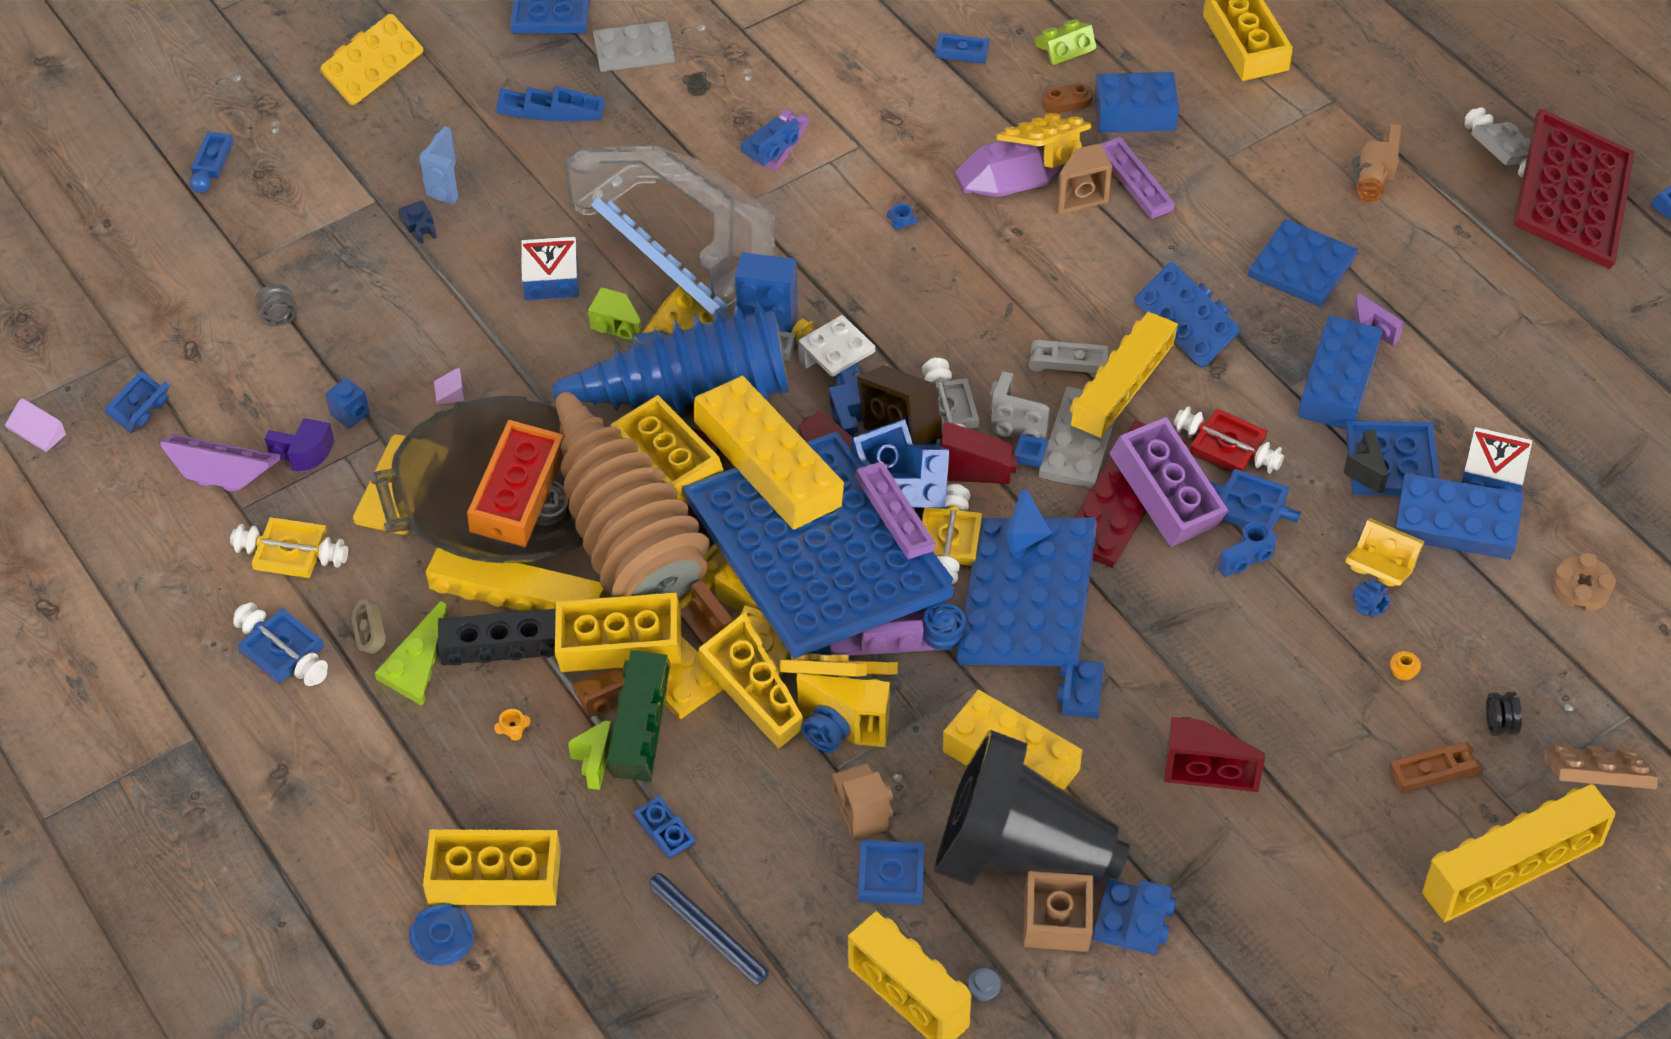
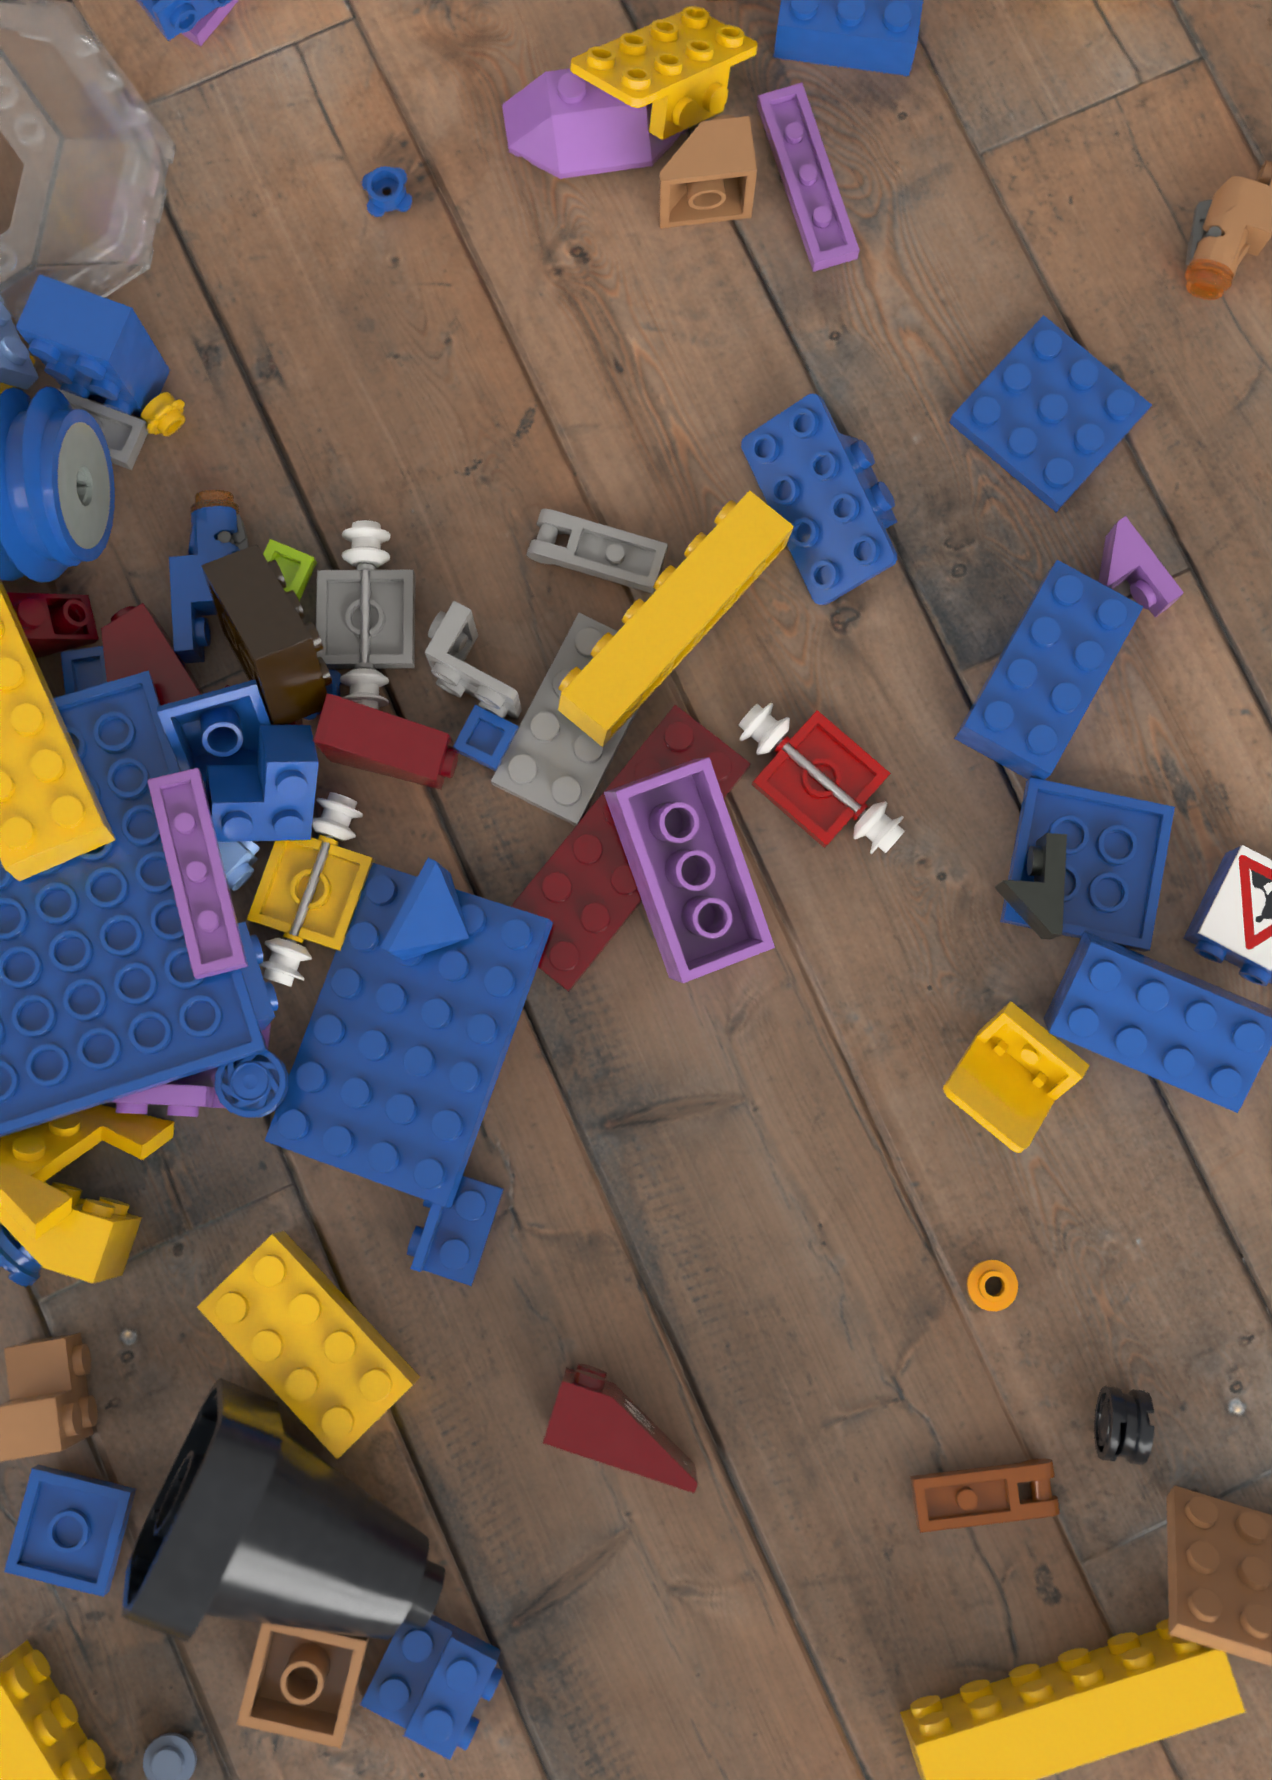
camera: 10 degrees right, 30 degrees up
(834, 346) = (200, 471): white bracket -> none
(1254, 500) = (827, 912): blue plate -> none
(1256, 545) = (772, 1028): blue plate -> none
(1371, 598) = (970, 1152): blue gear -> none

